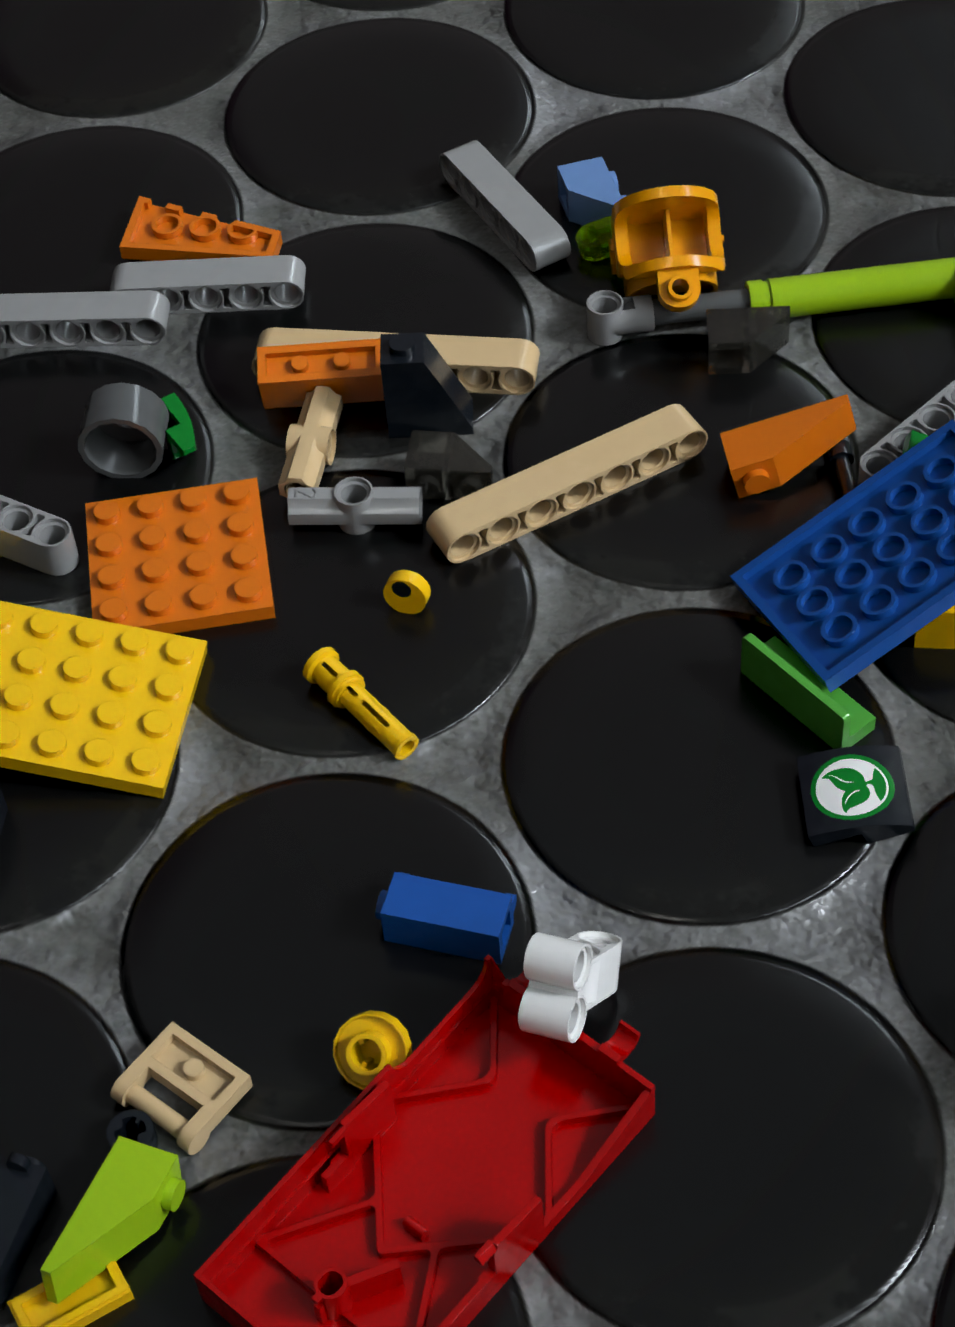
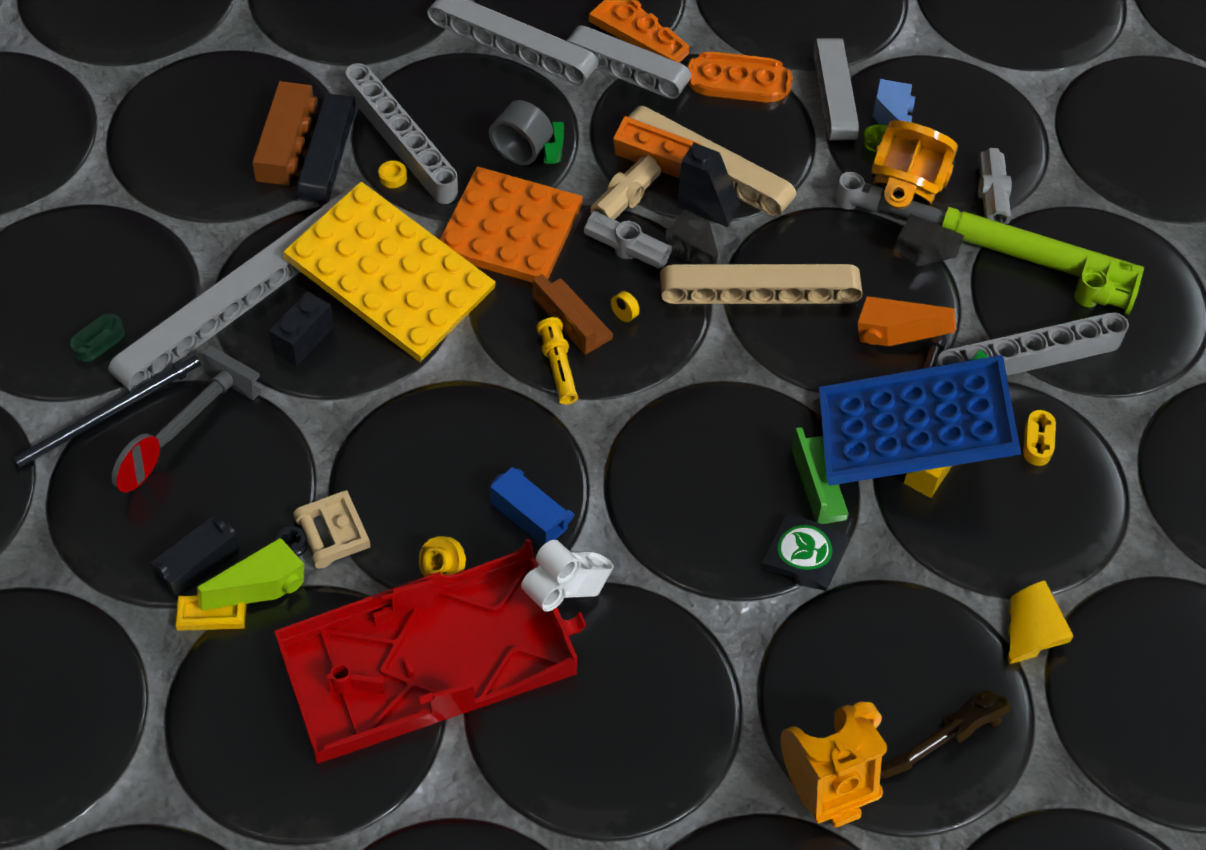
camera: 20 degrees right, 5 degrees up
(357, 641) = (578, 320): none -> dark orange panel
(368, 243) = (739, 77): none -> orange tile
(780, 234) = (994, 186): none -> light grey piece

